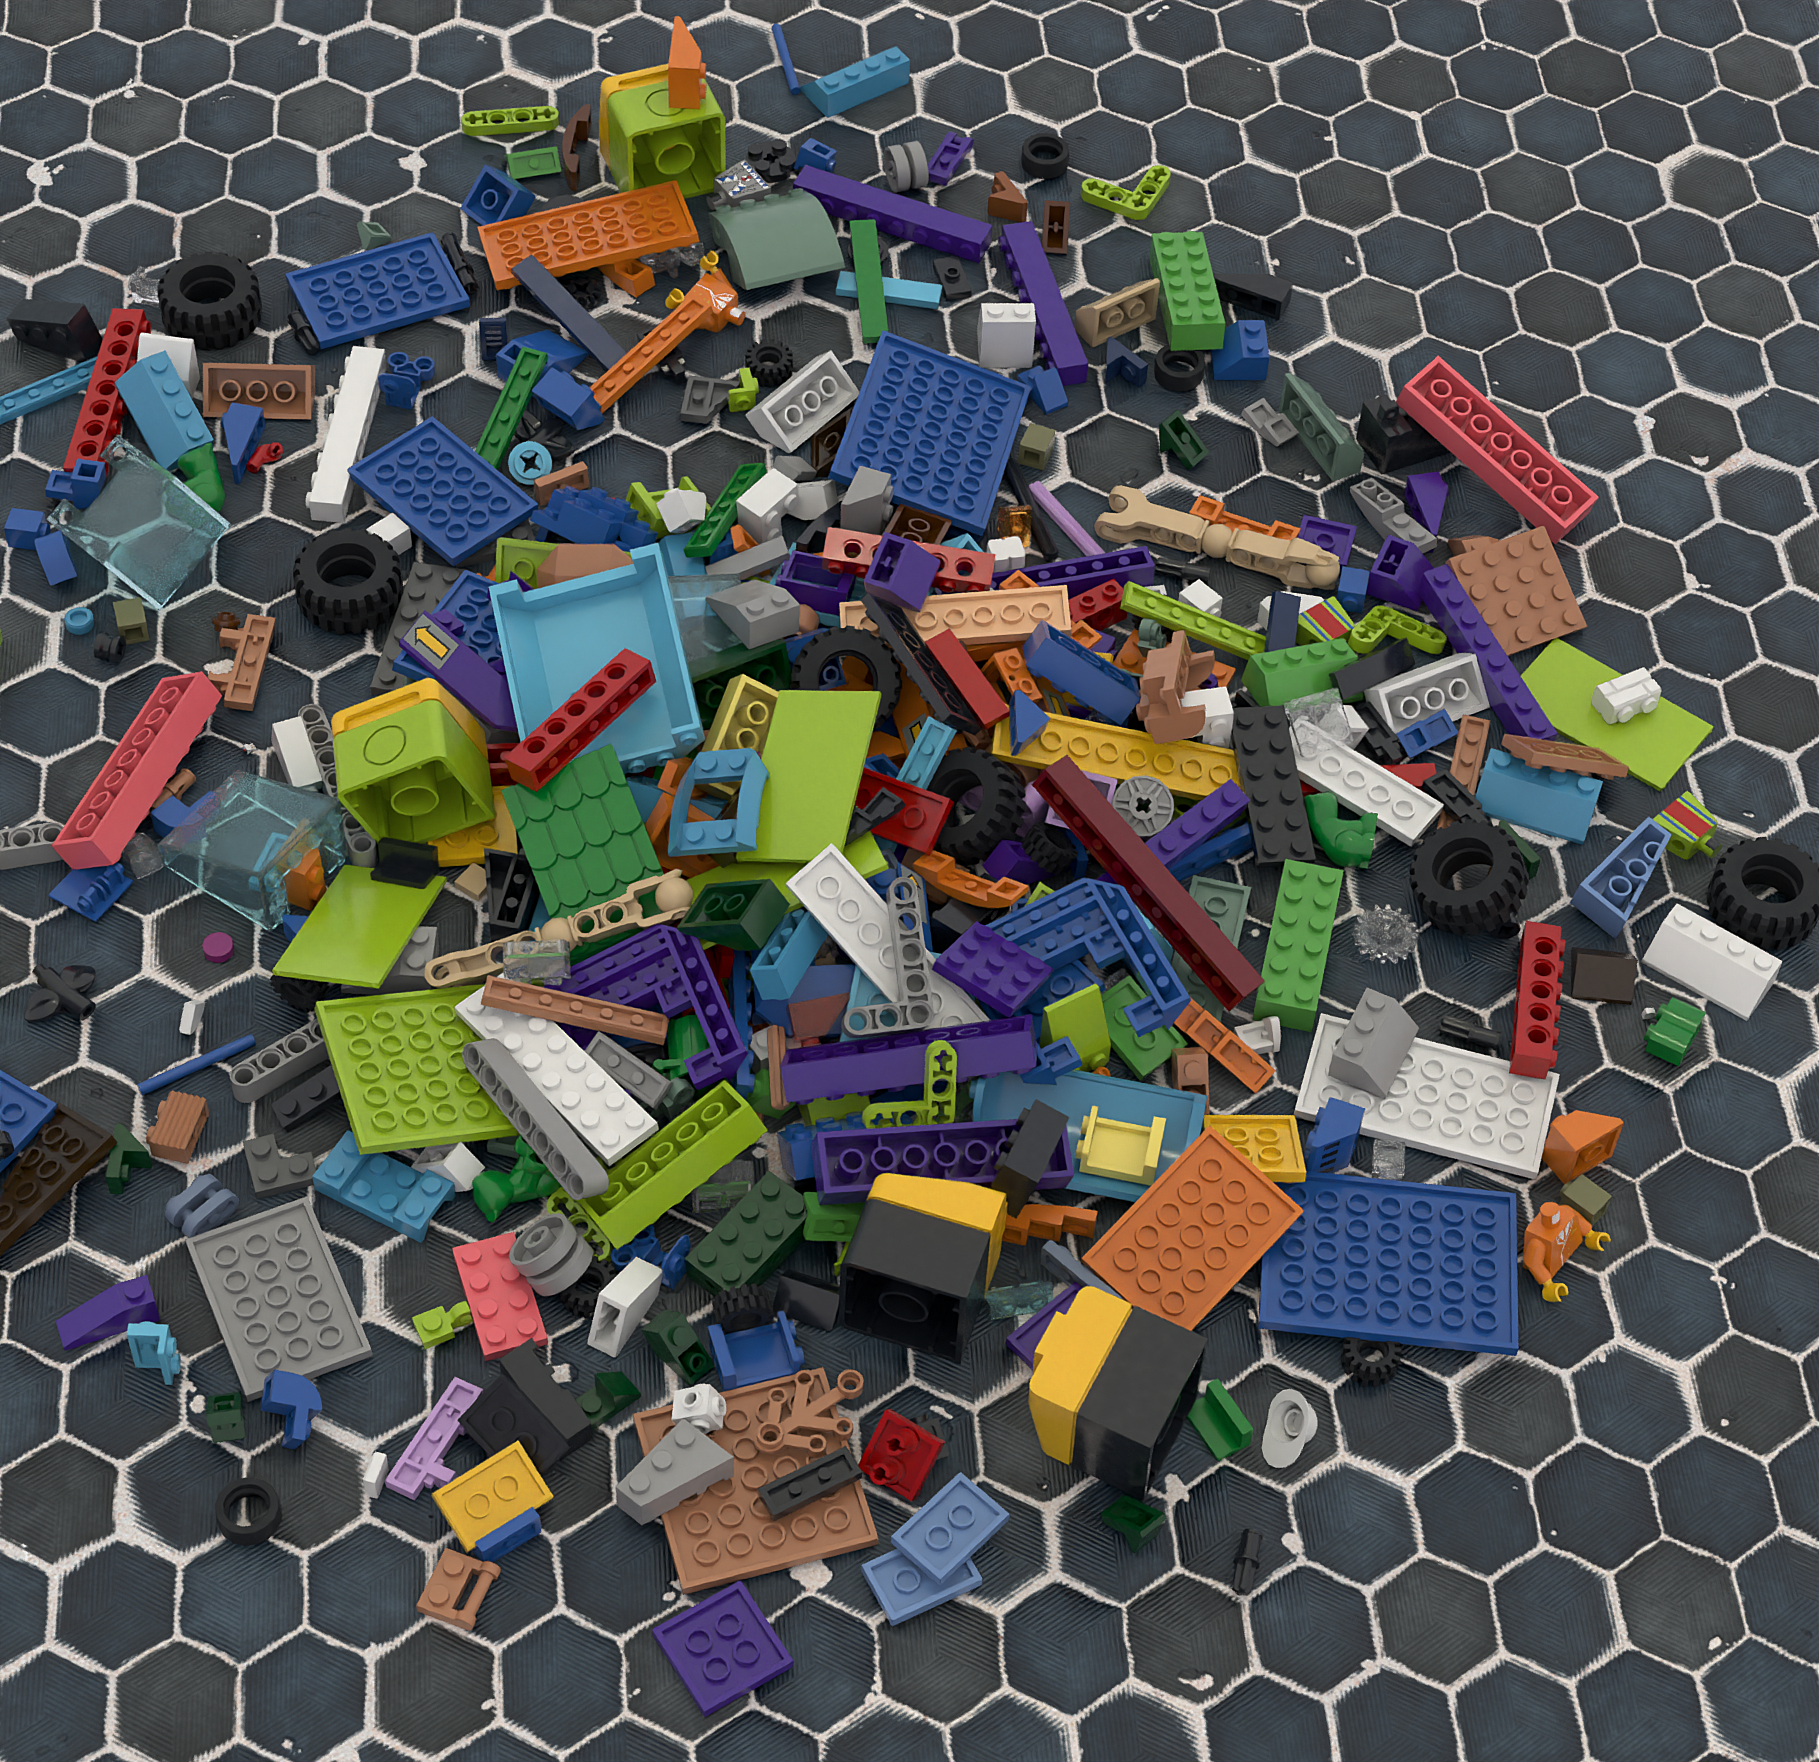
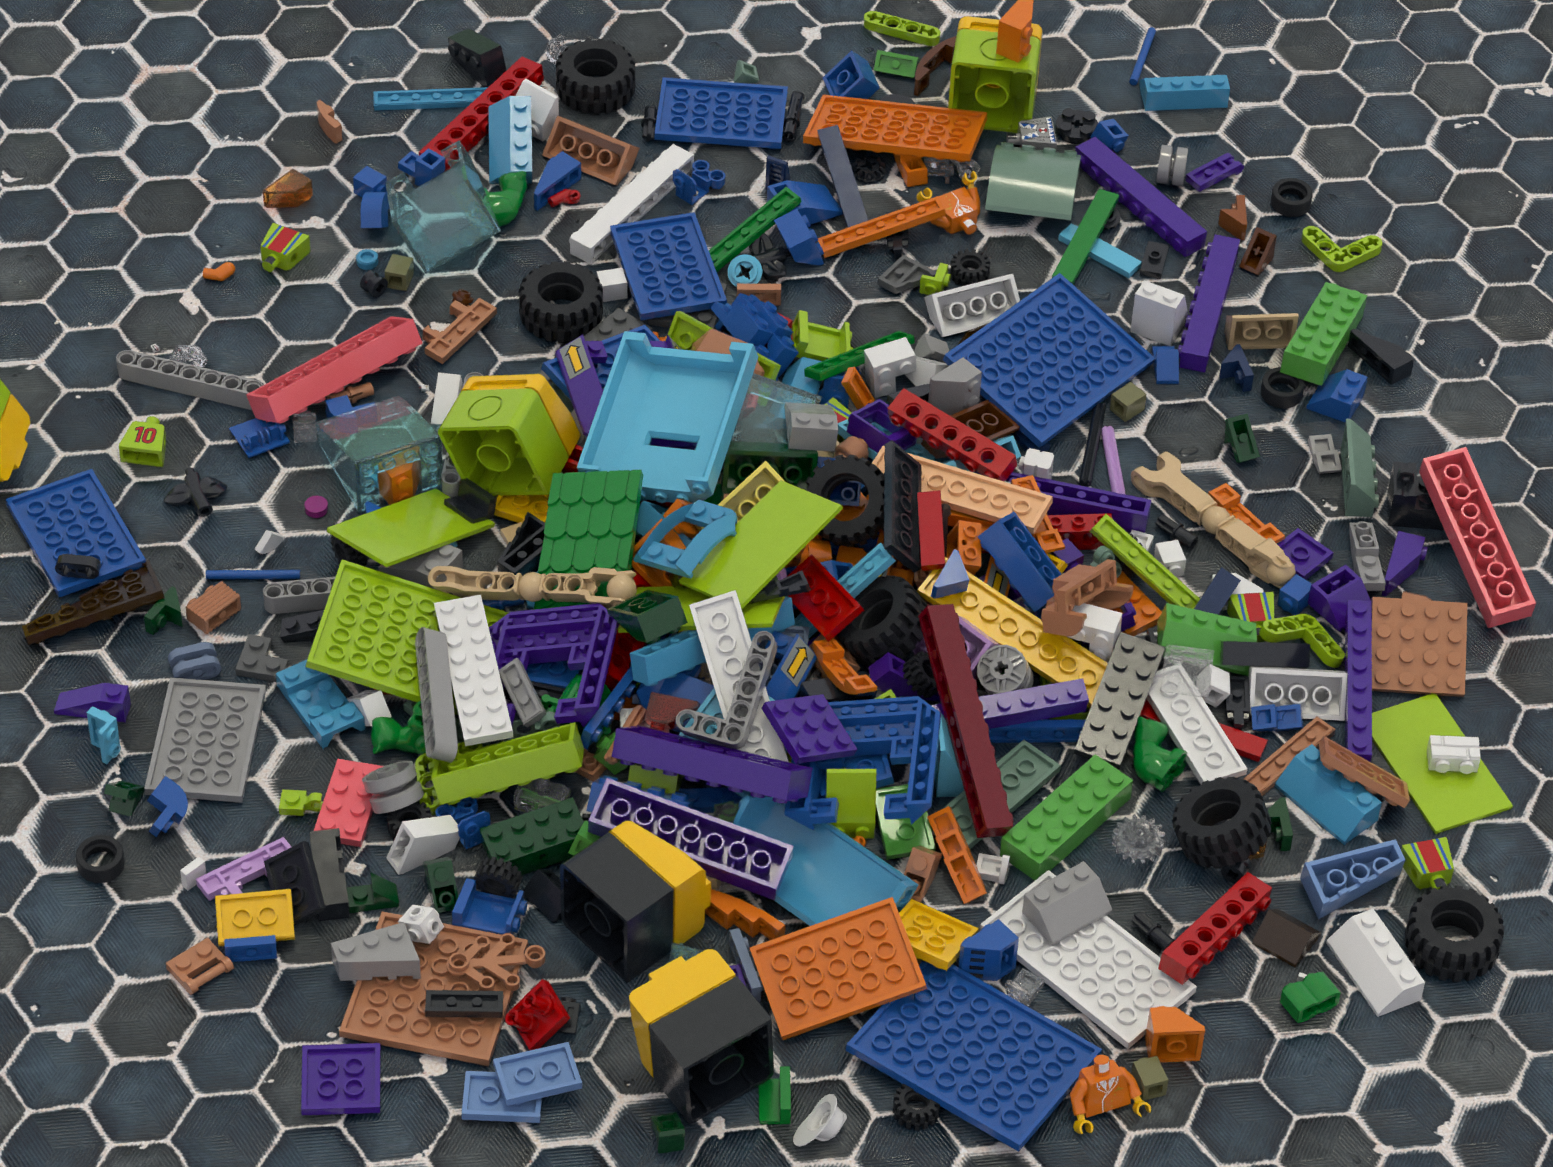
camera: 30 degrees right, 5 degrees down
(537, 961) = (503, 594): clear piece -> none
(575, 1010) = (509, 637): nougat tile -> none
(580, 719) = (631, 445): red brick -> none
(682, 509) = (824, 342): white slope -> none
(752, 560) = (848, 396): light grey tile -> none
(901, 572) = (932, 439): dark purple slope -> none
(926, 1108) = (697, 798): lime beam -> none
(1015, 521) = (1068, 449): clear orange slope -> none
(1027, 1154) = (742, 855): black wedge -> none
(1120, 1148) = (831, 891): light yellow panel -> none
(1456, 798) = (1260, 769): black hinge -> none

